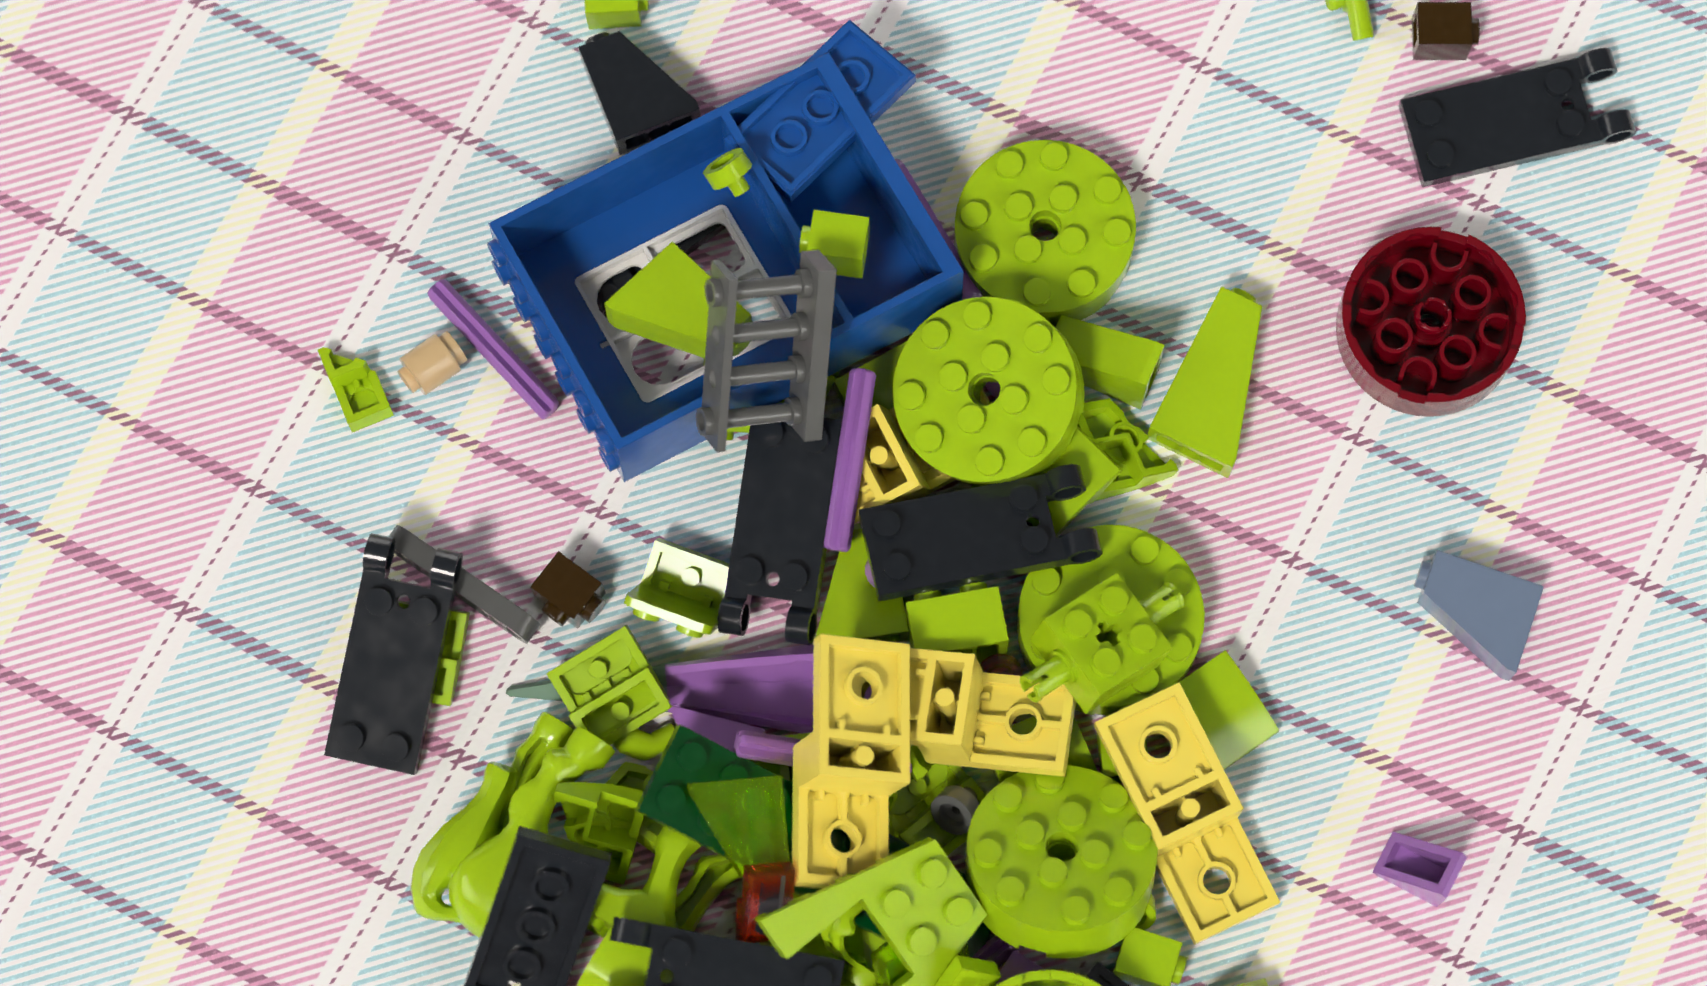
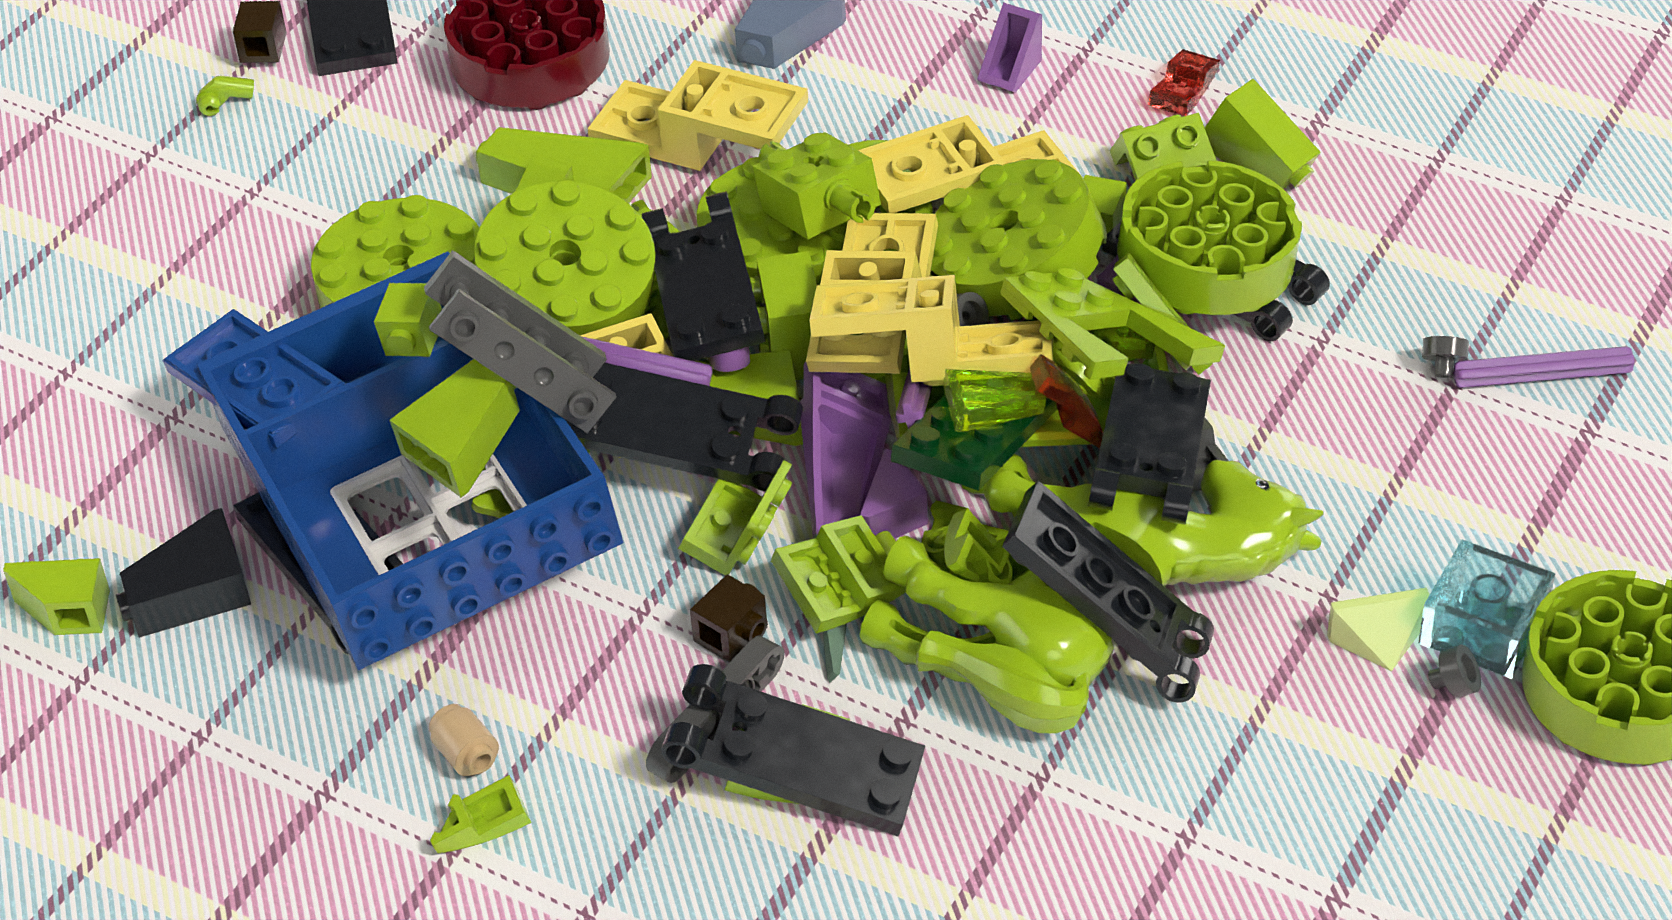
camera: 90 degrees left, 30 degrees down
(493, 349) = (458, 690): medium lavender axle -> none
(729, 172) = (314, 405): lime tile -> none
(1283, 518) = (700, 112): none -> light yellow bracket

